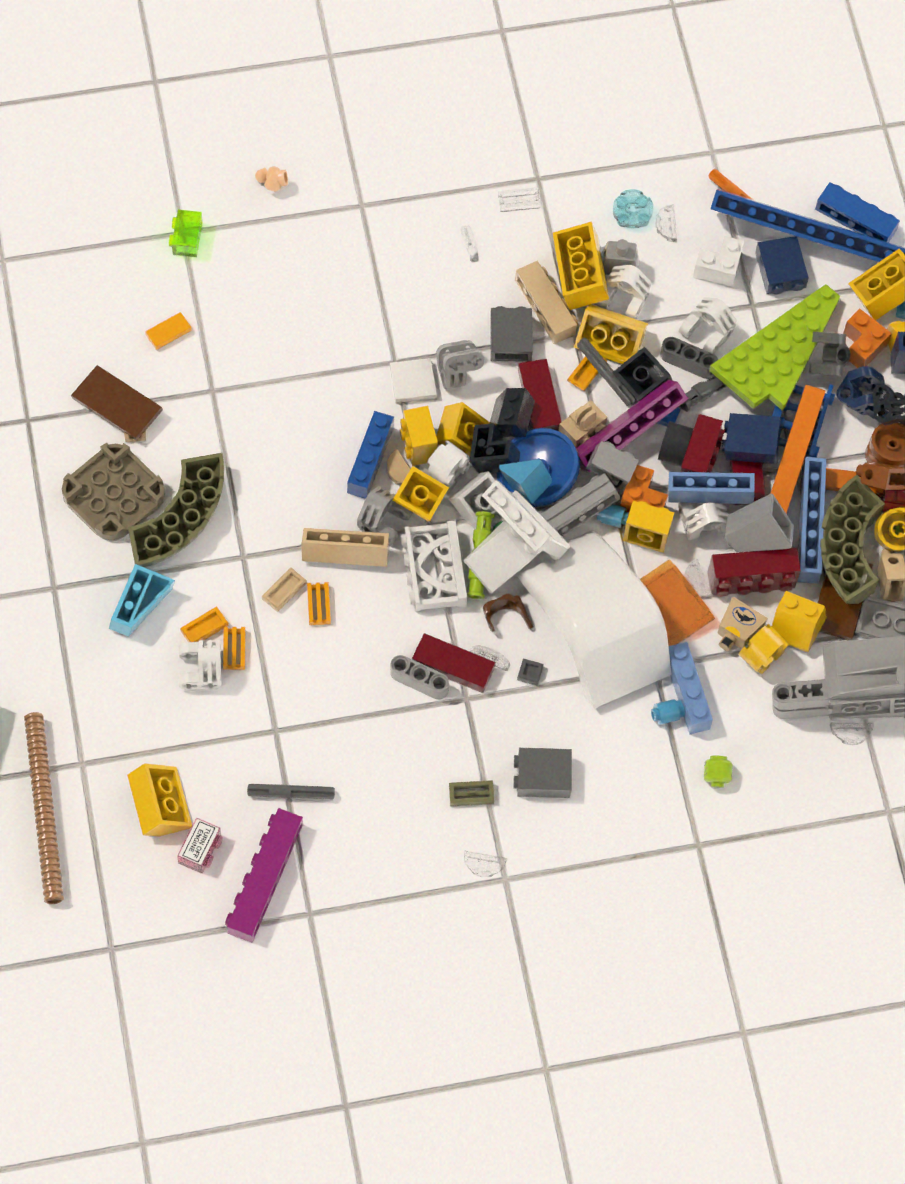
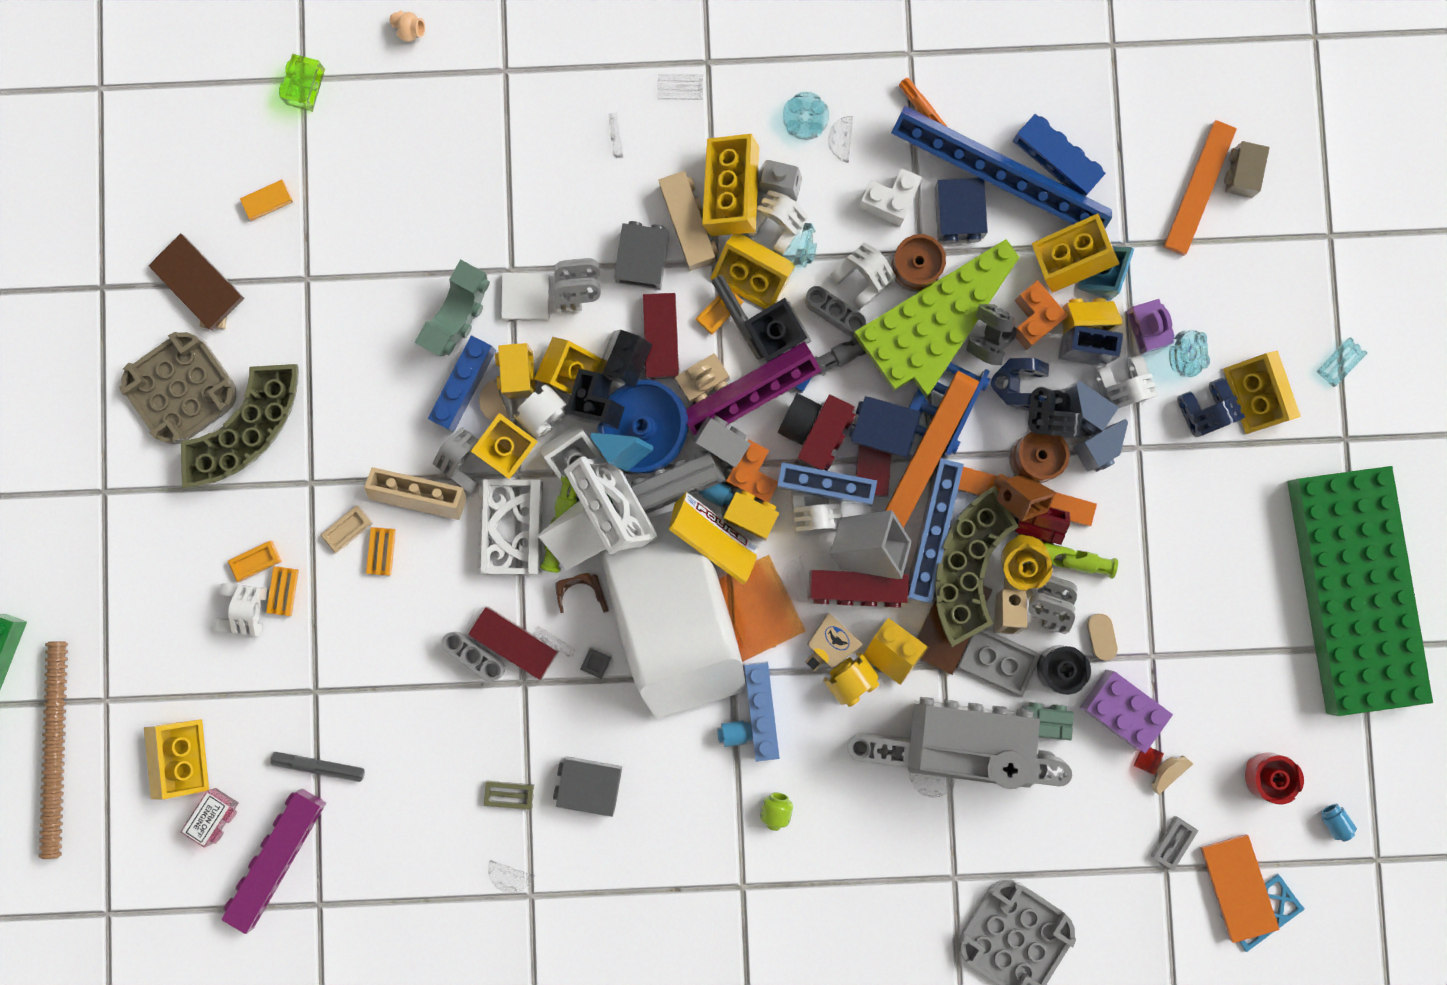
camera: 15 degrees right, 20 degrees up
(140, 597) = (182, 525): medium azure wedge -> none
(359, 389) = (457, 312): none -> sand green brick
(620, 542) = (713, 537): none -> yellow slope
(654, 313) = (806, 248): none -> clear light blue tile
(754, 308) = (922, 249): none -> dark orange wheel

